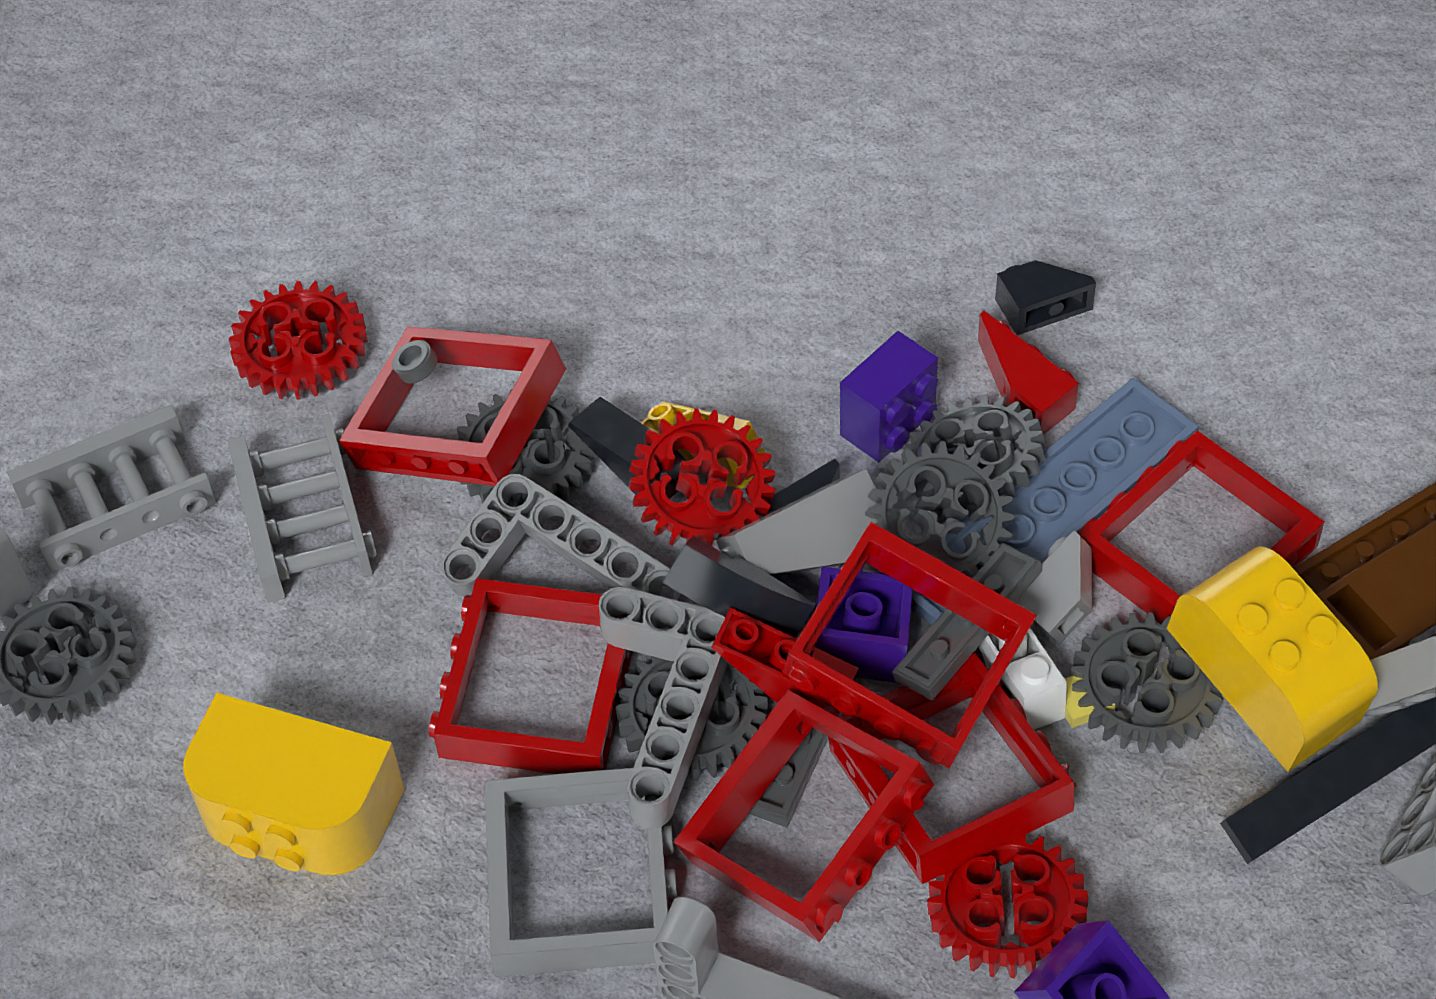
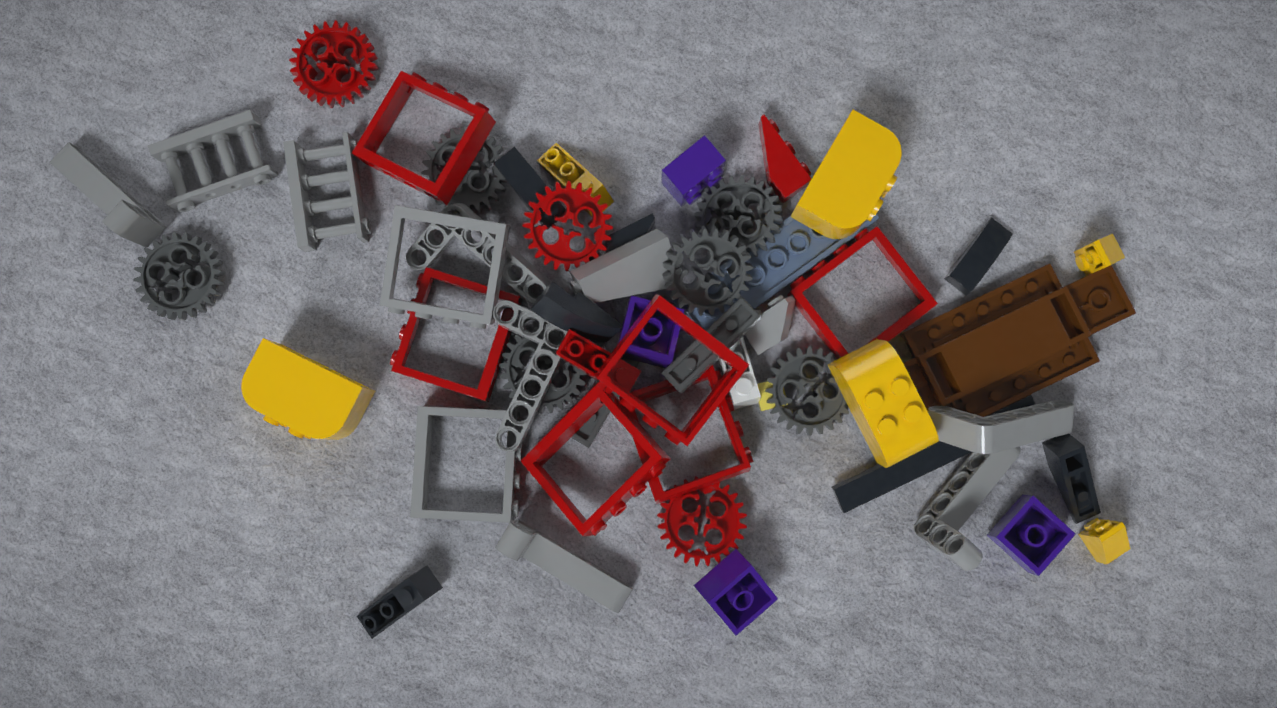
camera: 10 degrees right, 30 degrees up
(414, 361) = (401, 104): dark grey tile -> none
(510, 488) = (425, 310): none -> light grey window
(1042, 294) = (803, 100): black slope -> none
(1136, 367) = (850, 179): none -> yellow brick
(1370, 462) = (978, 257): none -> black slope

